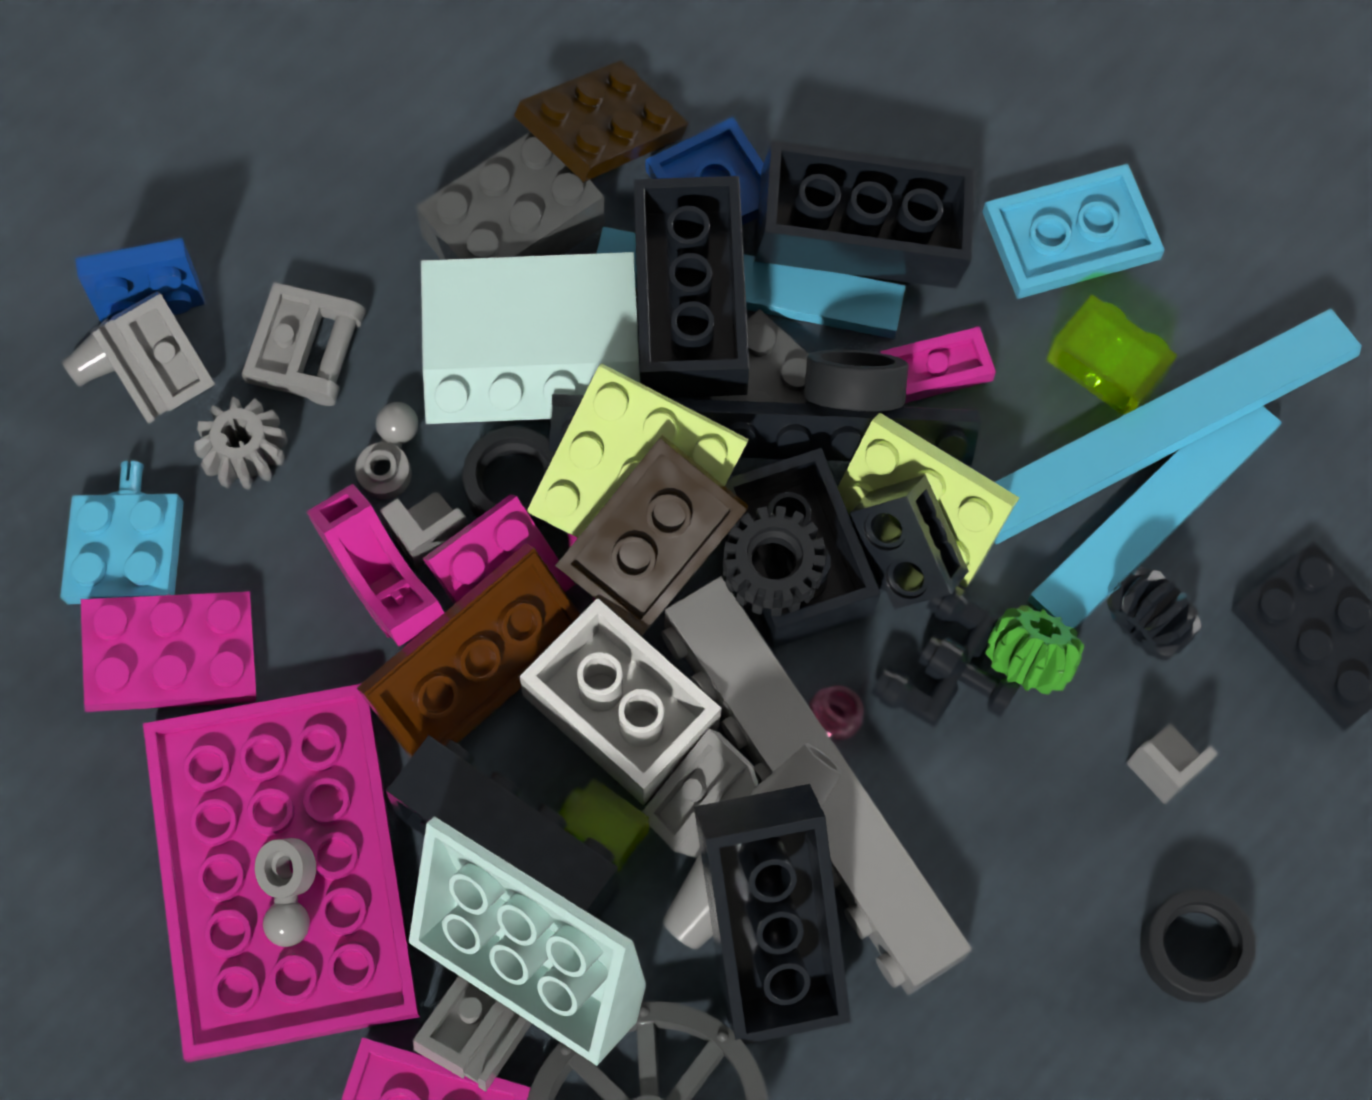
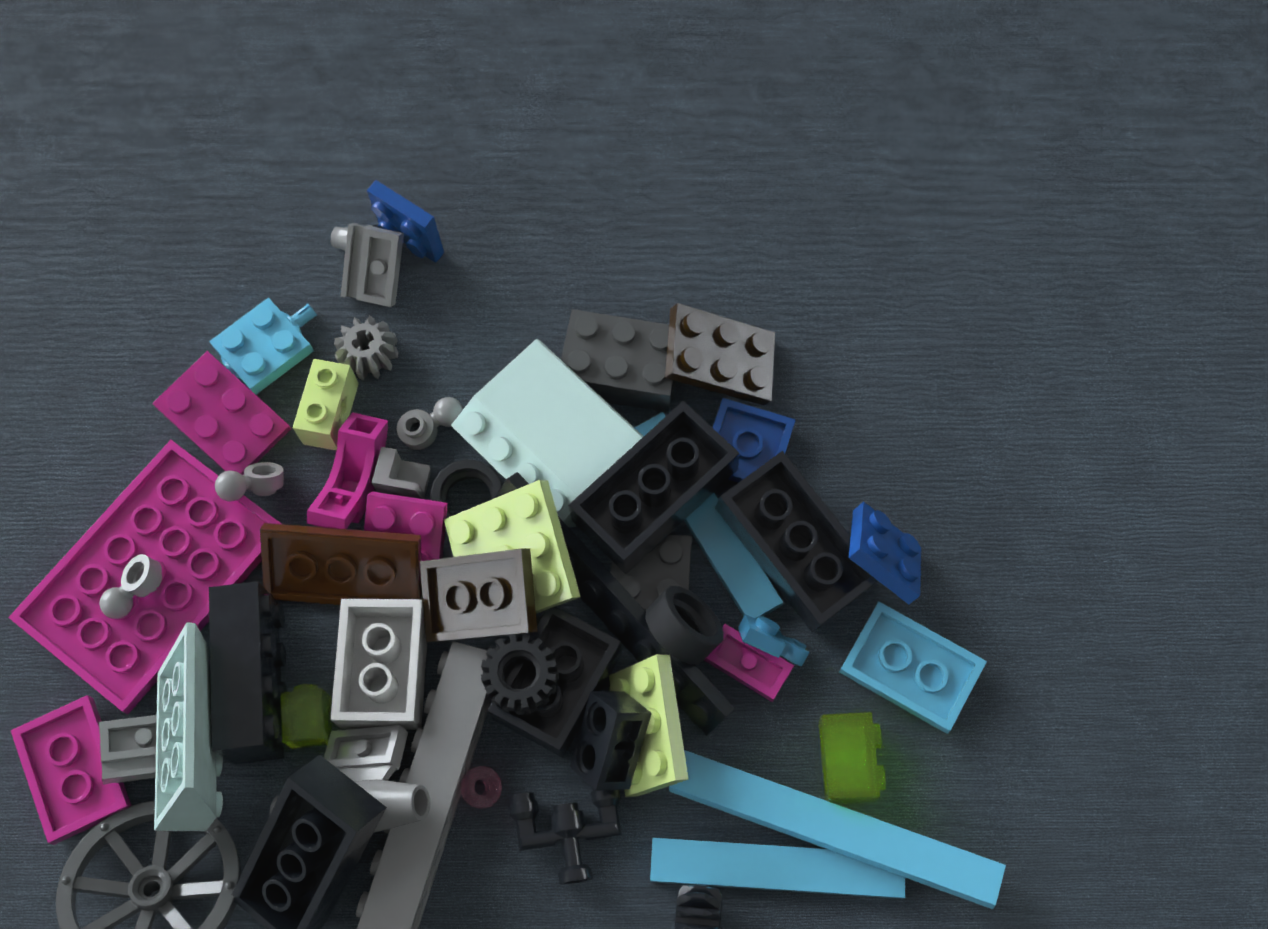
camera: 55 degrees right, 0 degrees up
(268, 532) = (325, 403): none -> yellowish green brick
(281, 670) = (261, 478): none -> light grey plate
(287, 338) = (447, 317): light grey plate -> none
(927, 324) = (766, 636): none -> dark azure plate
(951, 146) = (886, 552): none -> blue plate
(1034, 649) = (612, 869): bright green gear -> none

